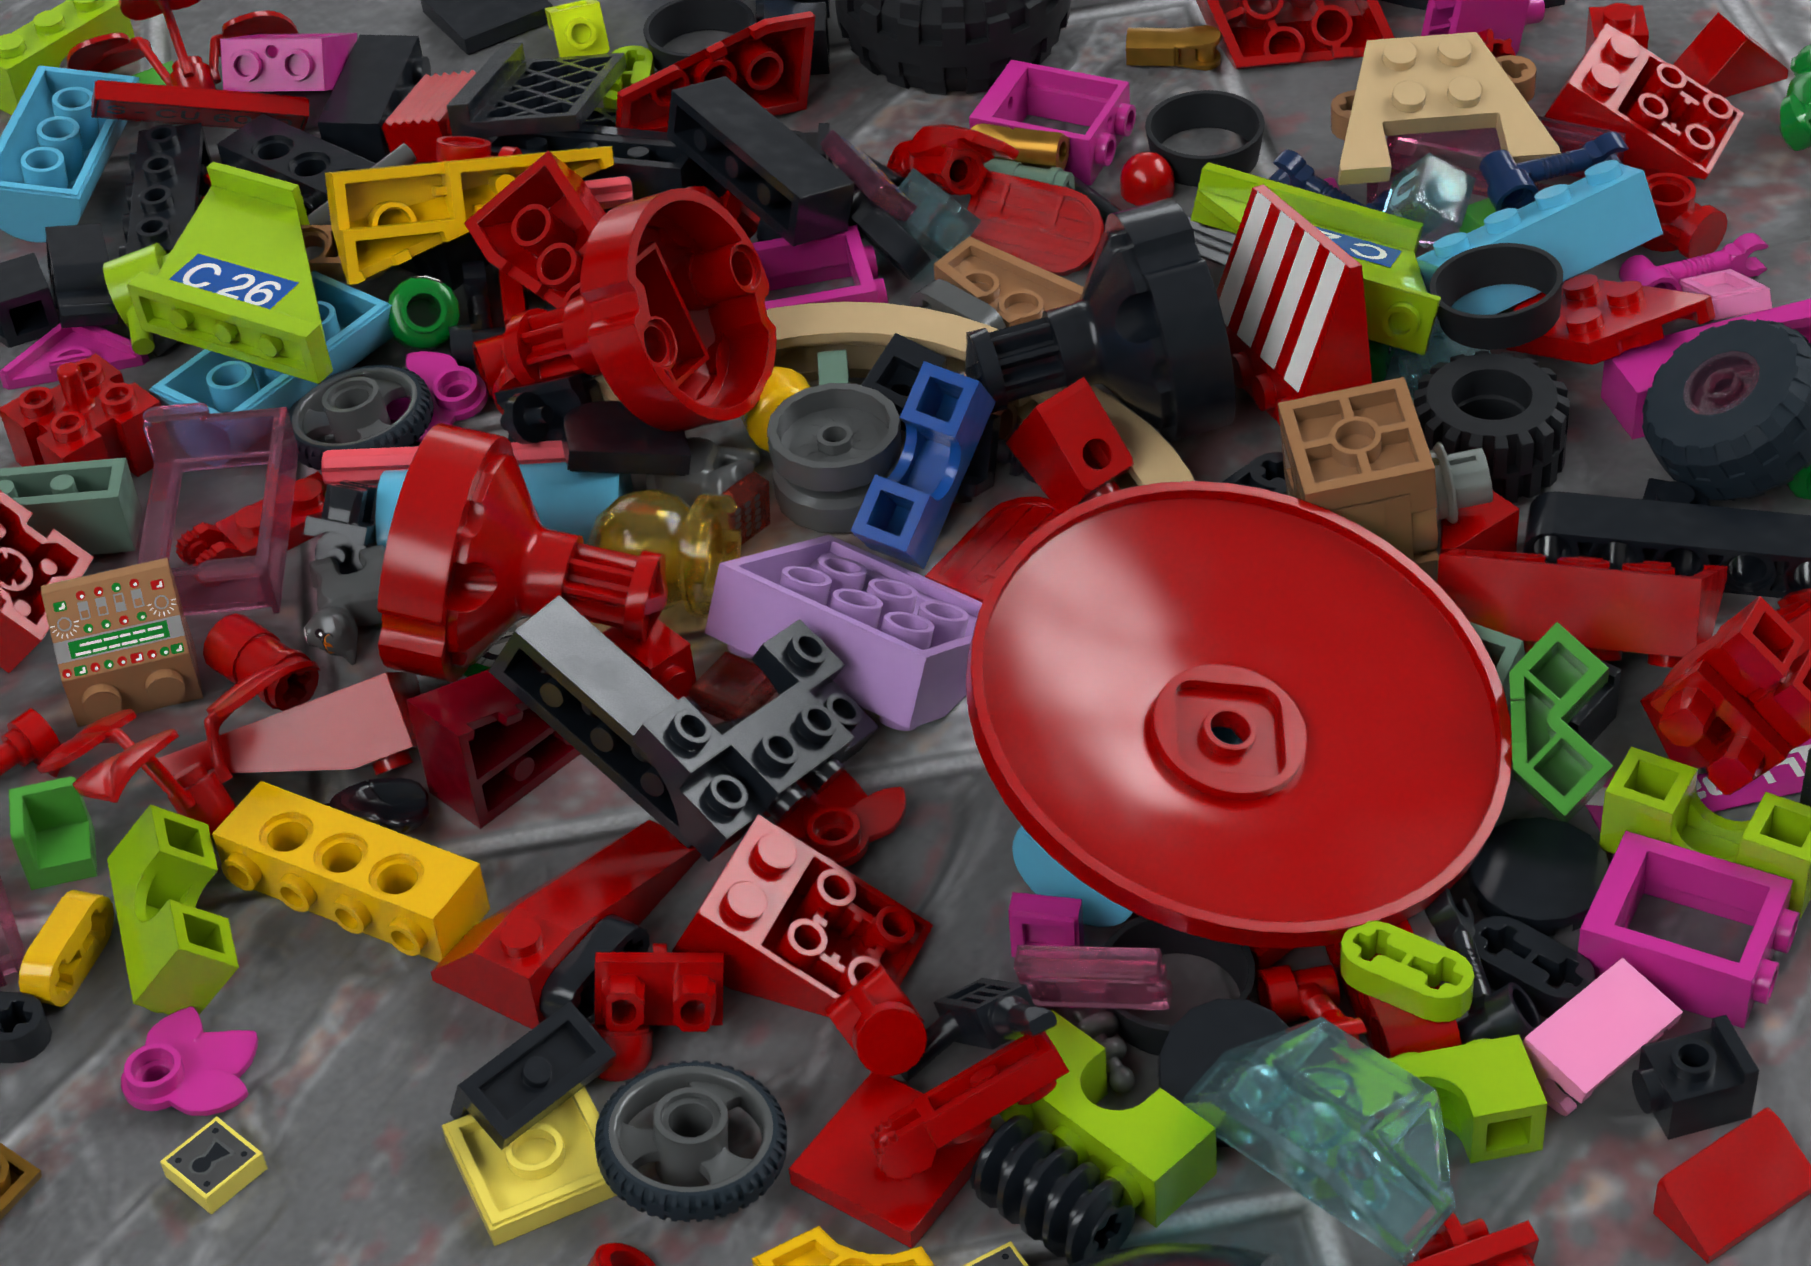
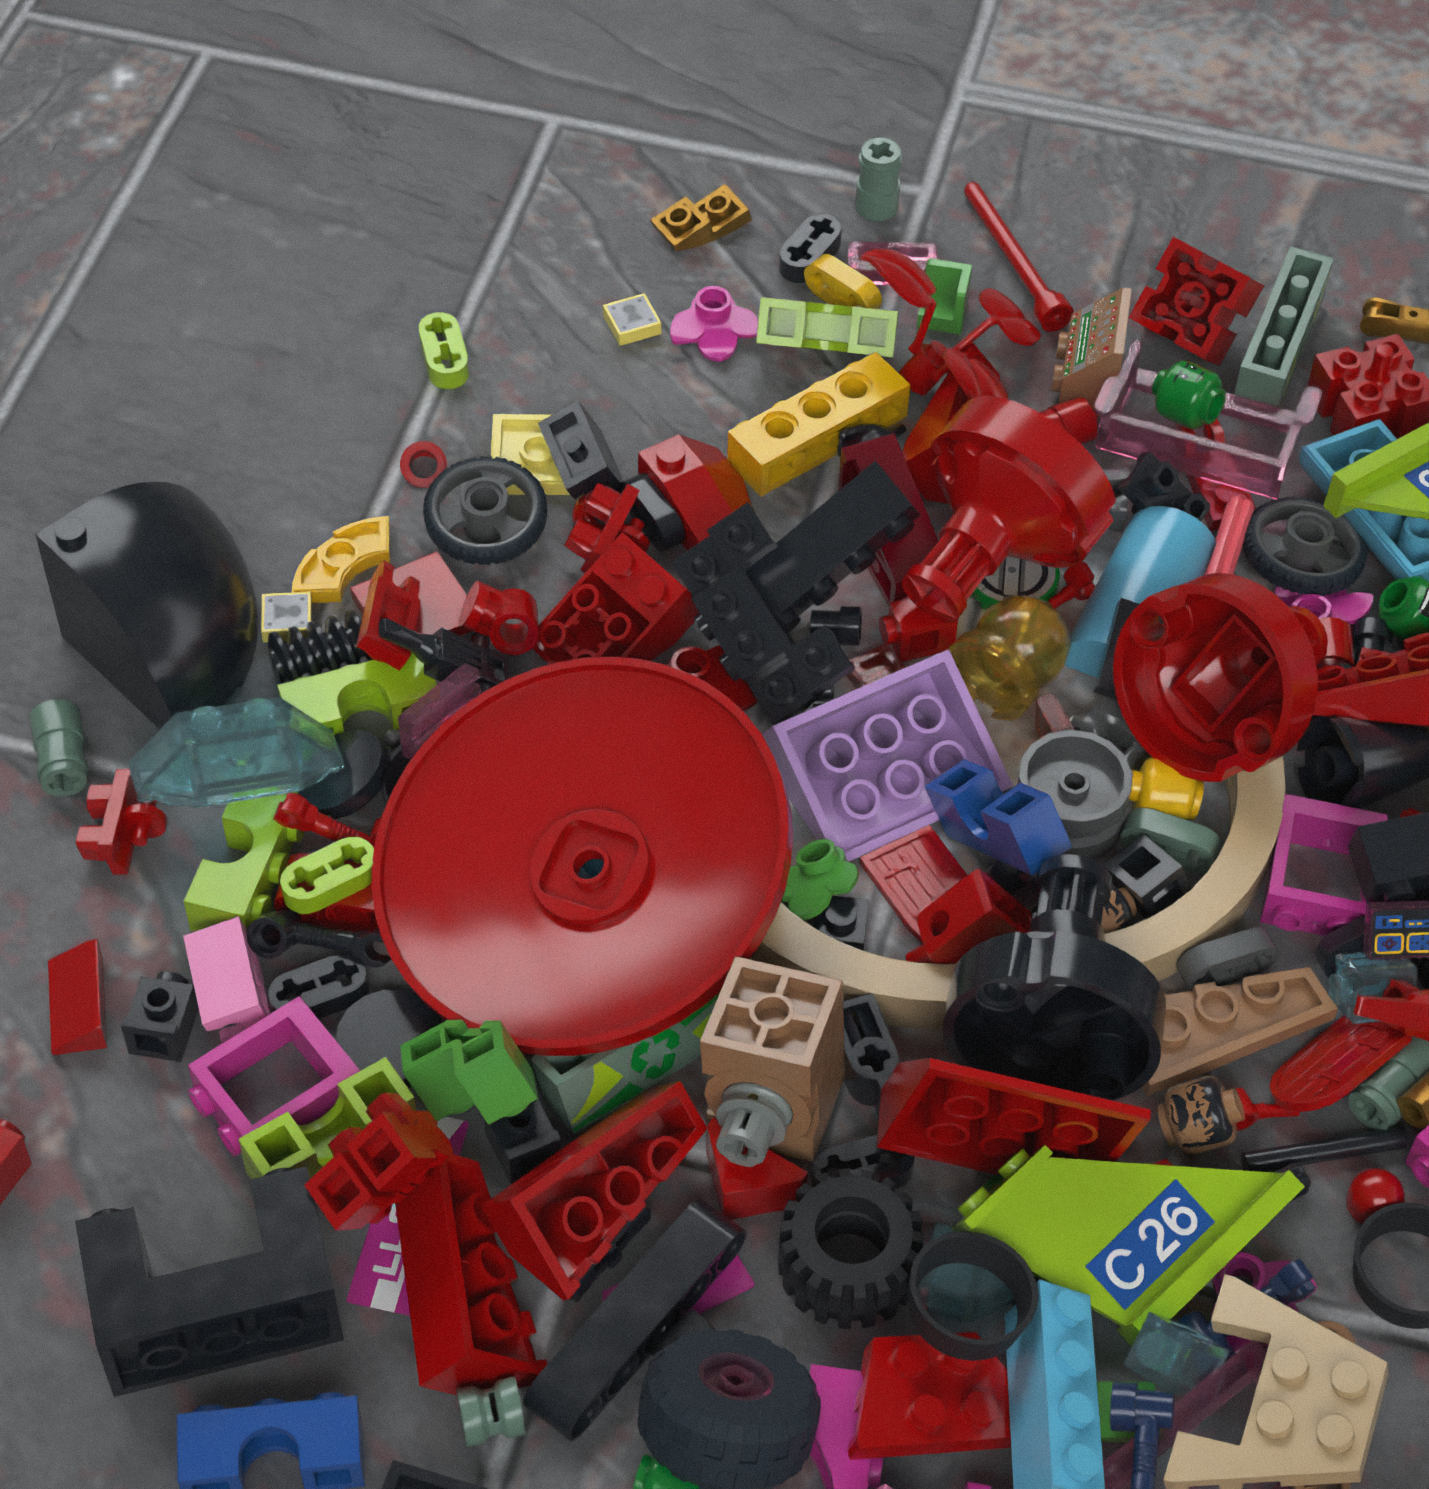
camera: 110 degrees right, 10 degrees up
(191, 516) = (1188, 394): none -> green head

